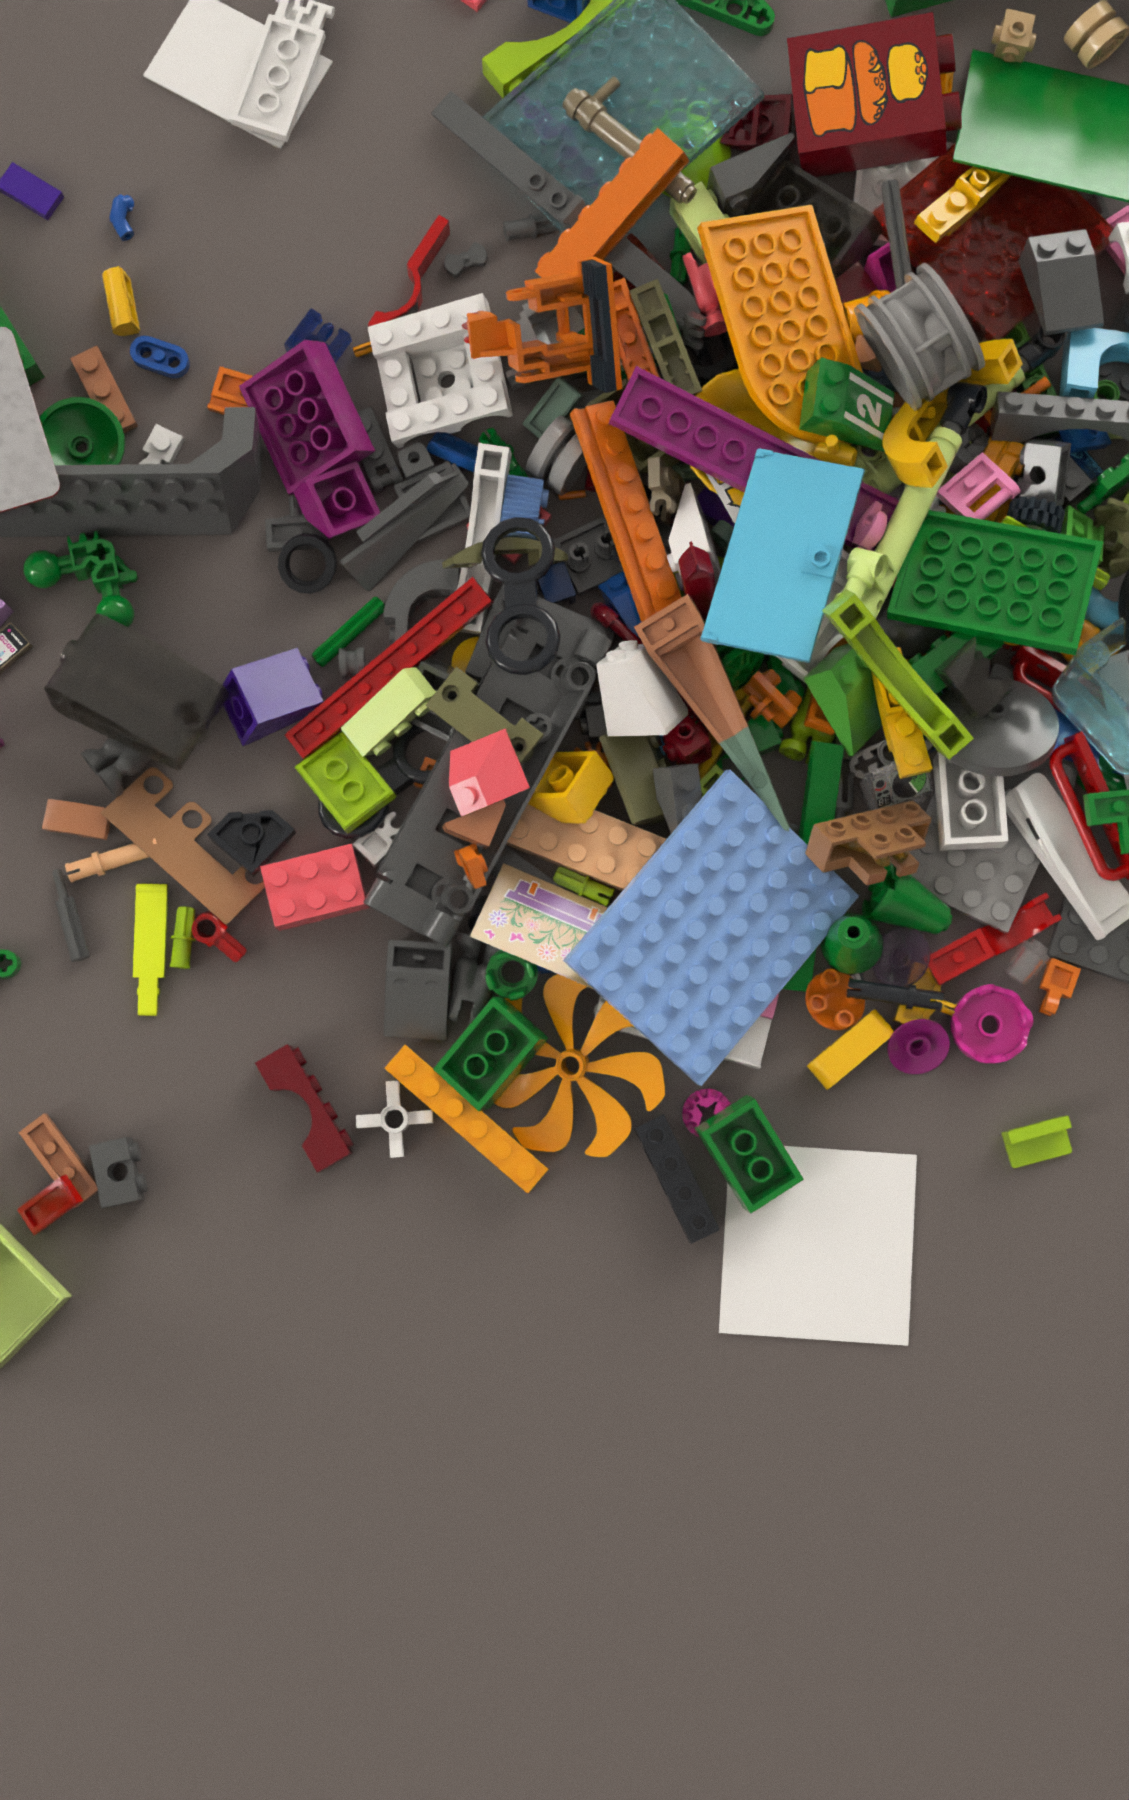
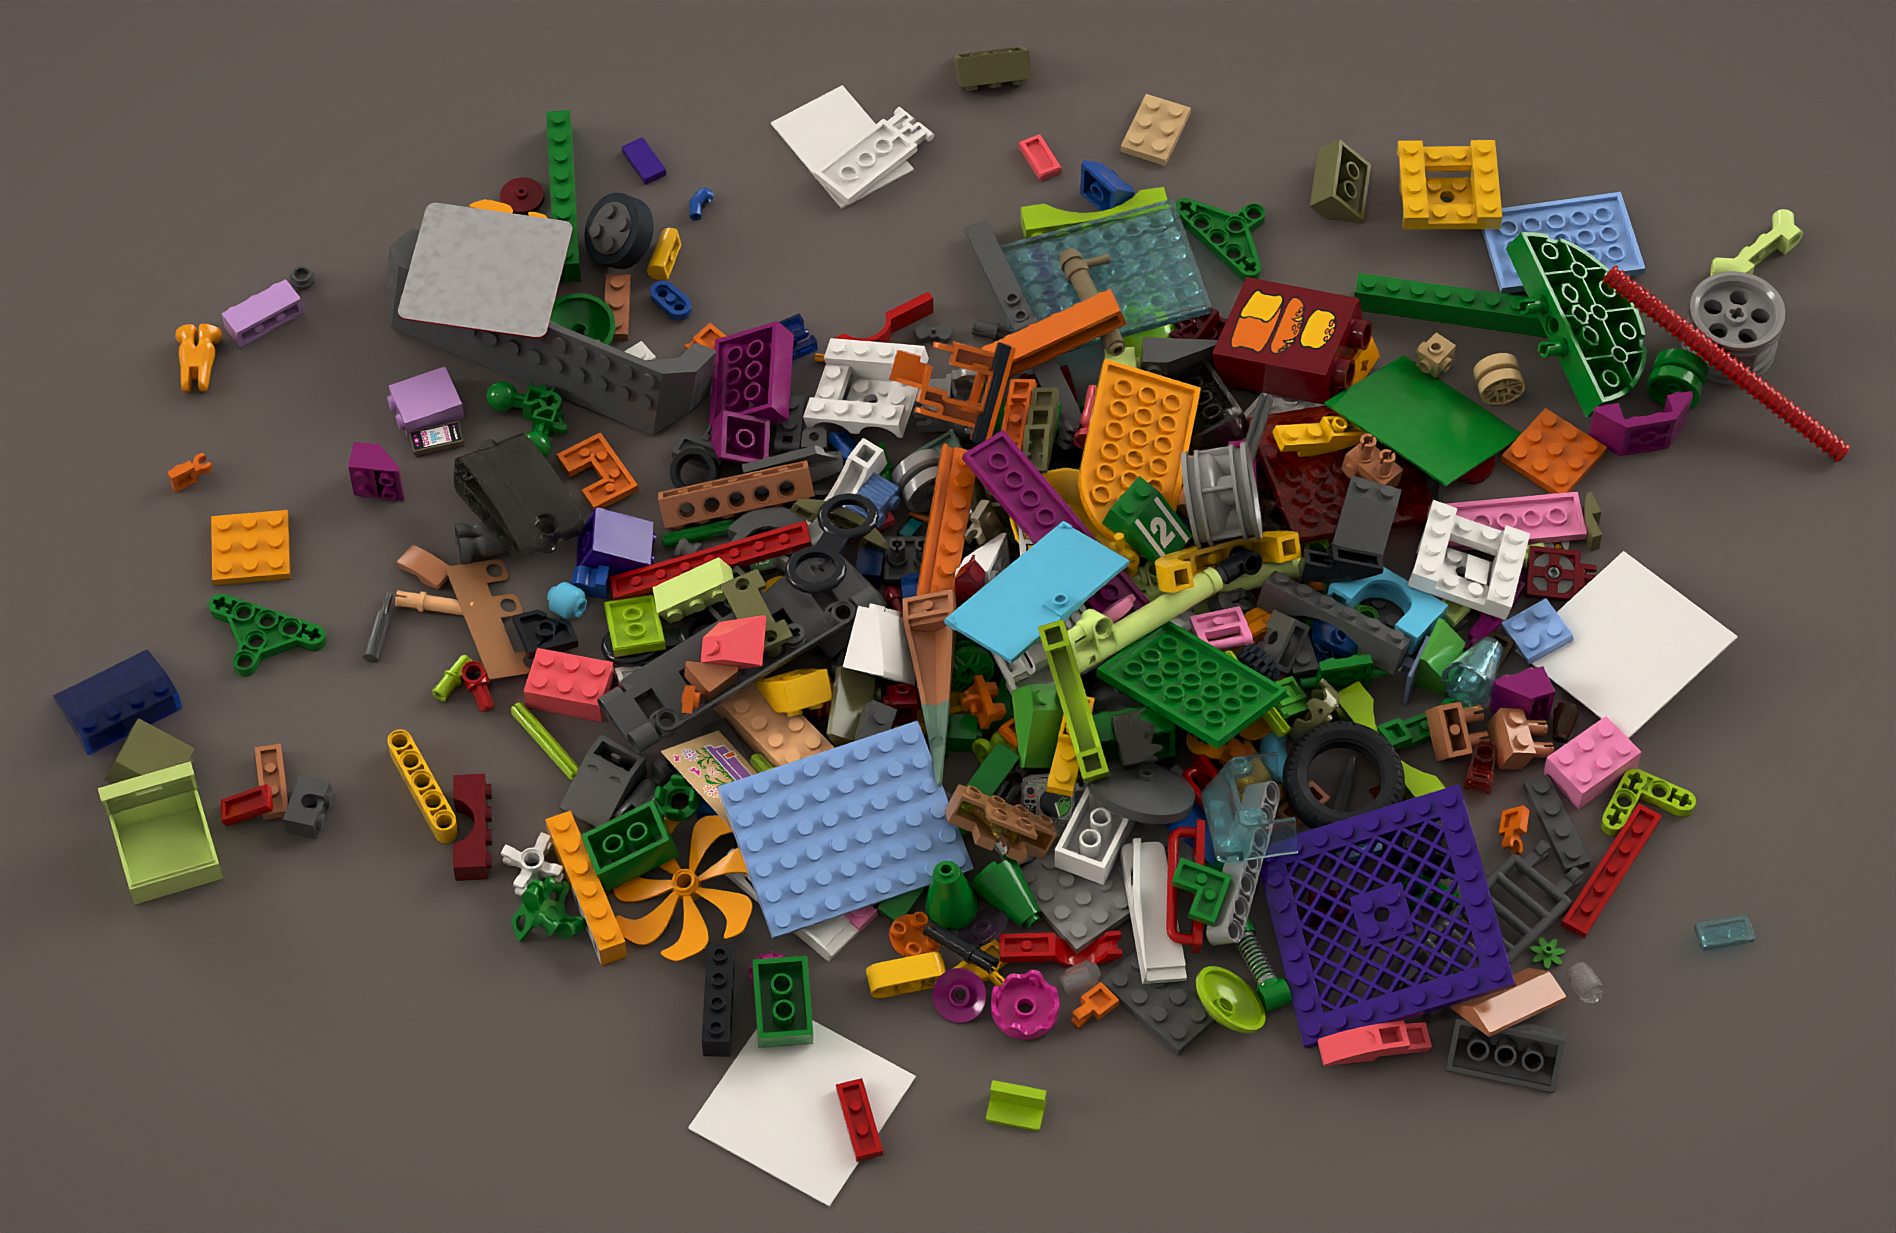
camera: 30 degrees right, 25 degrees down
(58, 300) = (619, 231): none -> wheel
(150, 944) = (426, 672): neon yellow piece -> none
(185, 588) = (615, 479): none -> orange plate
(212, 1078) = (425, 796): none -> yellow beam
(255, 787) = (567, 600): none -> medium azure head
(266, 749) = (592, 580): none -> blue leg
(325, 963) = (545, 740): none -> lime axle
(374, 557) = (722, 489): none -> nougat brick
(442, 1168) = (546, 912): none -> green piece
(569, 515) = (910, 527): none -> teal piece
(890, 1237) = (859, 1120): none -> red plate
(1033, 212) = (1371, 463): none -> nougat brick
(1067, 354) = (1339, 565): none -> black slope

